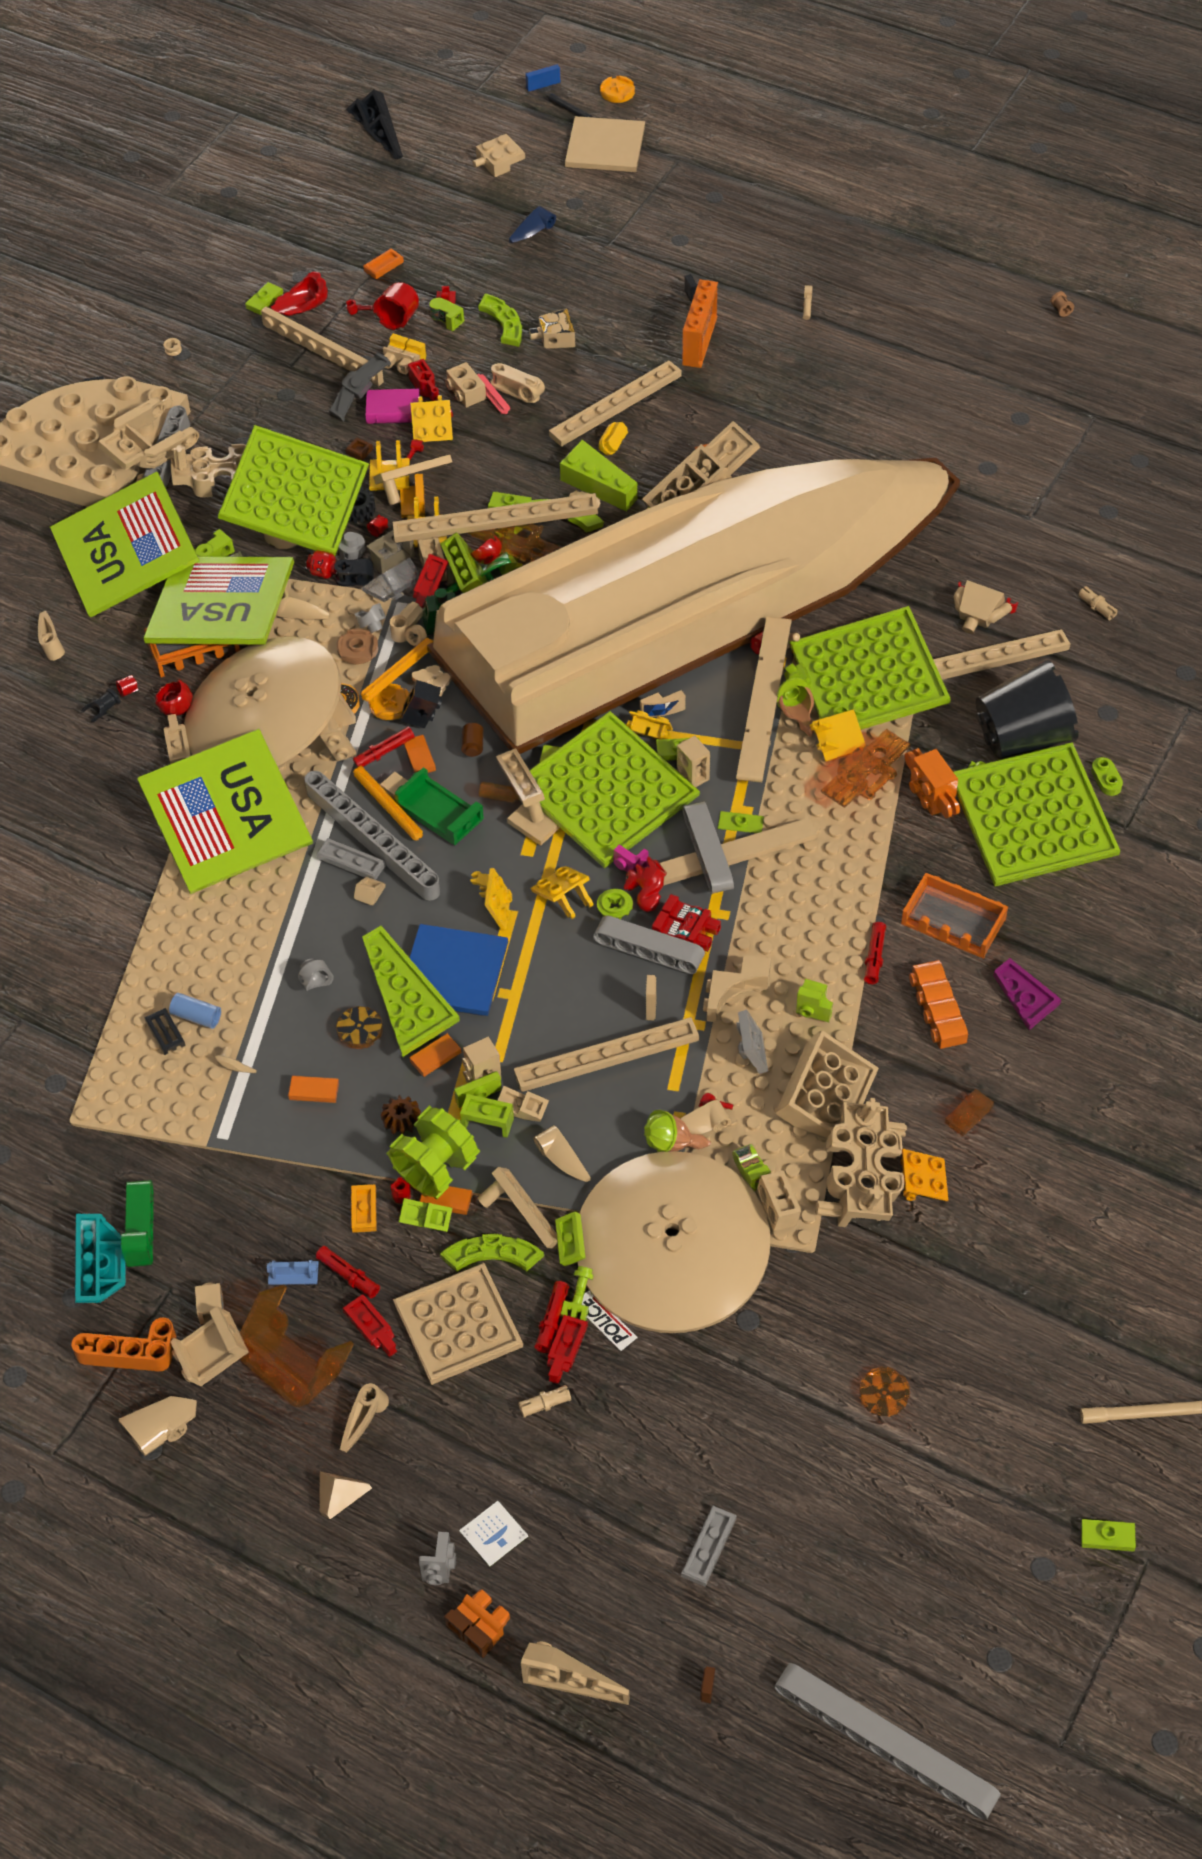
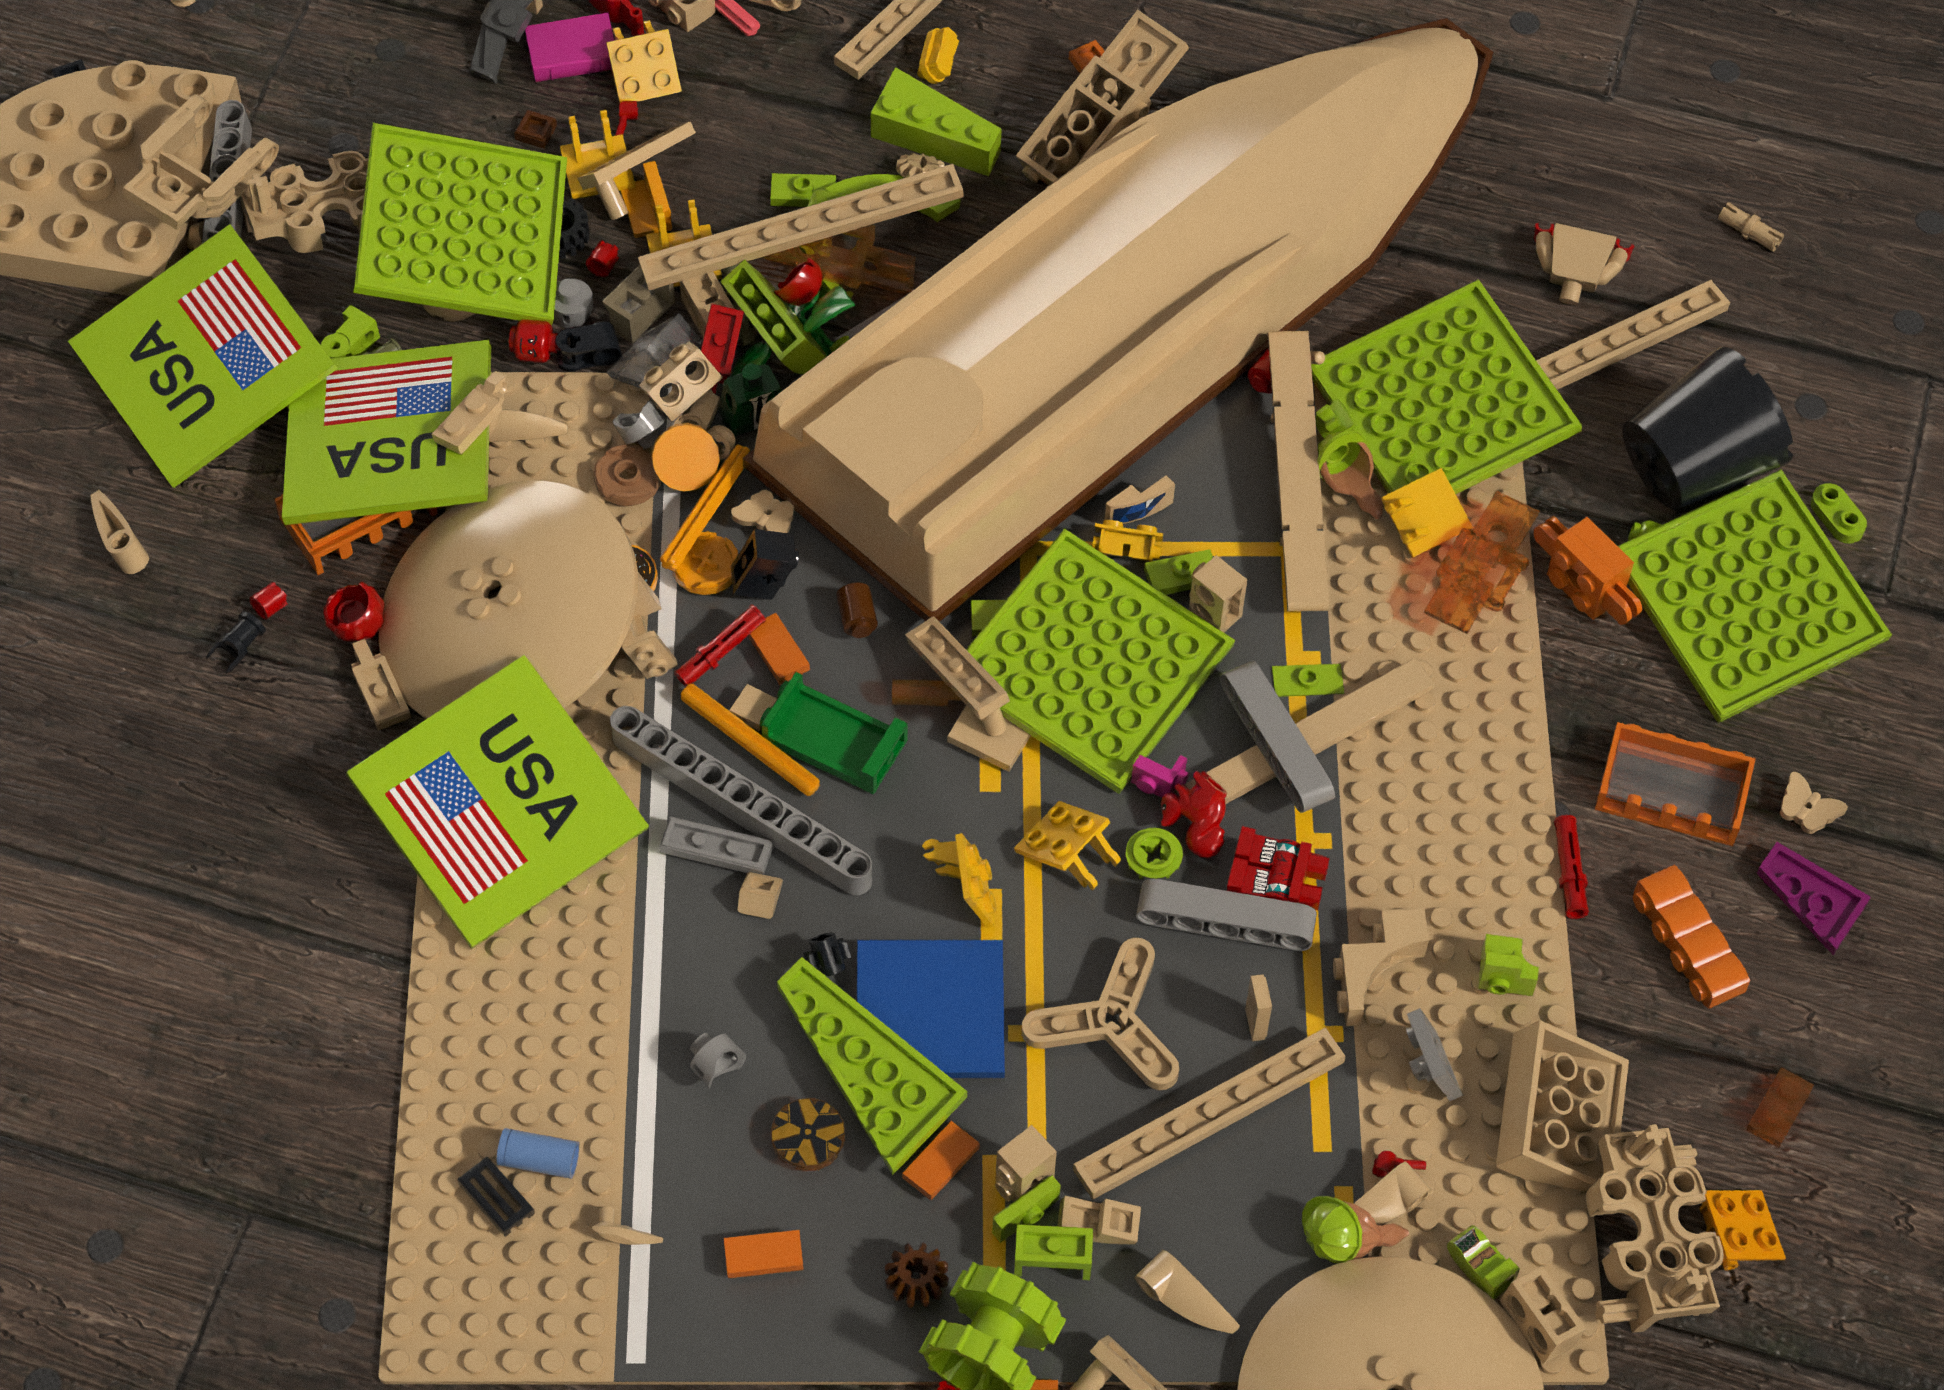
camera: 15 degrees left, 5 degrees up
(270, 594) = (473, 414): none -> tan hinge
(392, 639) = (685, 457): none -> light orange tile
(398, 927) = (828, 953): none -> black gear
(402, 599) = (685, 388): none -> tan brick
(546, 992) = (1087, 1020): none -> tan piece
(1037, 943) = (1819, 810): none -> tan animal

